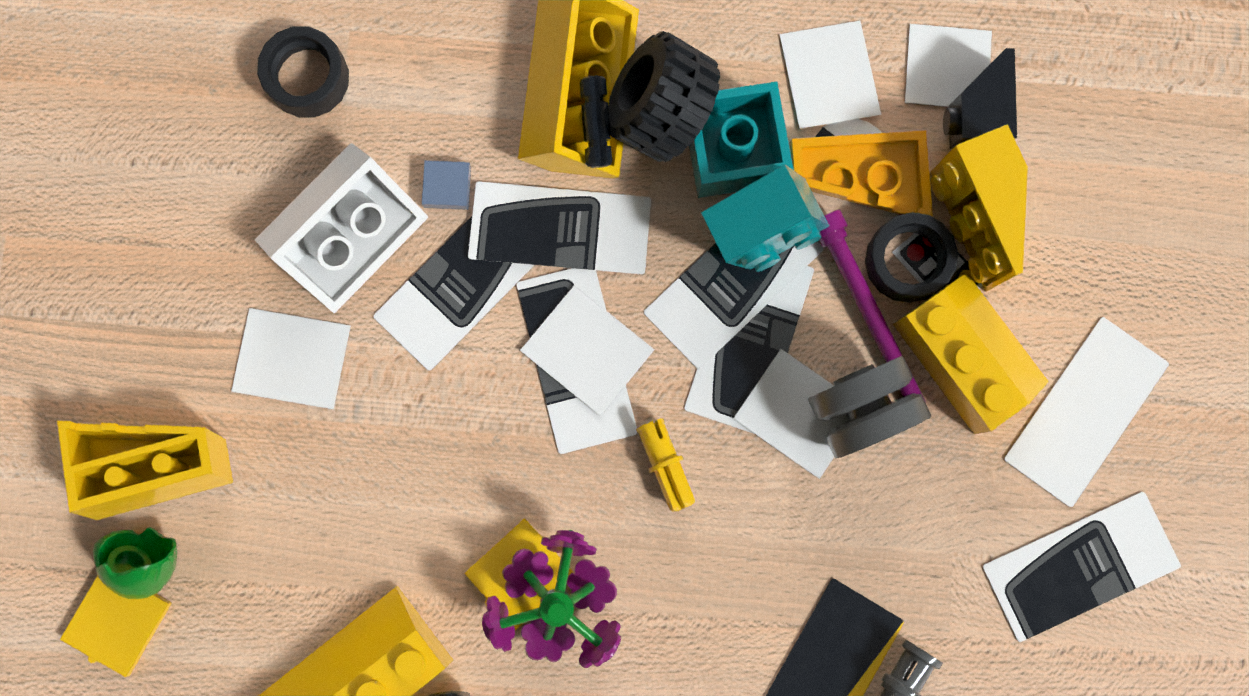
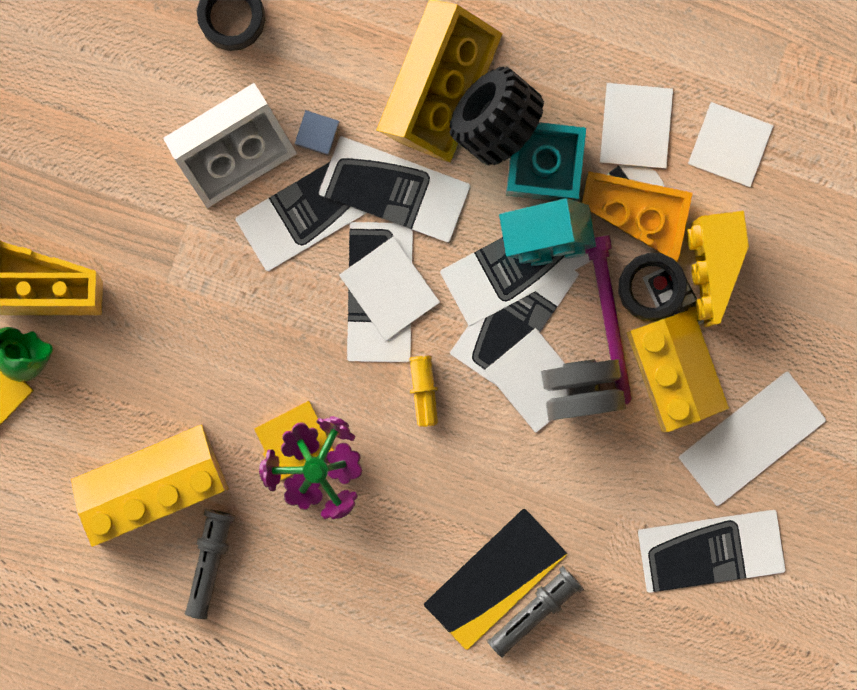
camera: 20 degrees right, 5 degrees up
(291, 358) = (165, 233): white sticker -> none
(595, 121) = (442, 120): black axle -> none
(985, 102) = (743, 186): black slope -> none

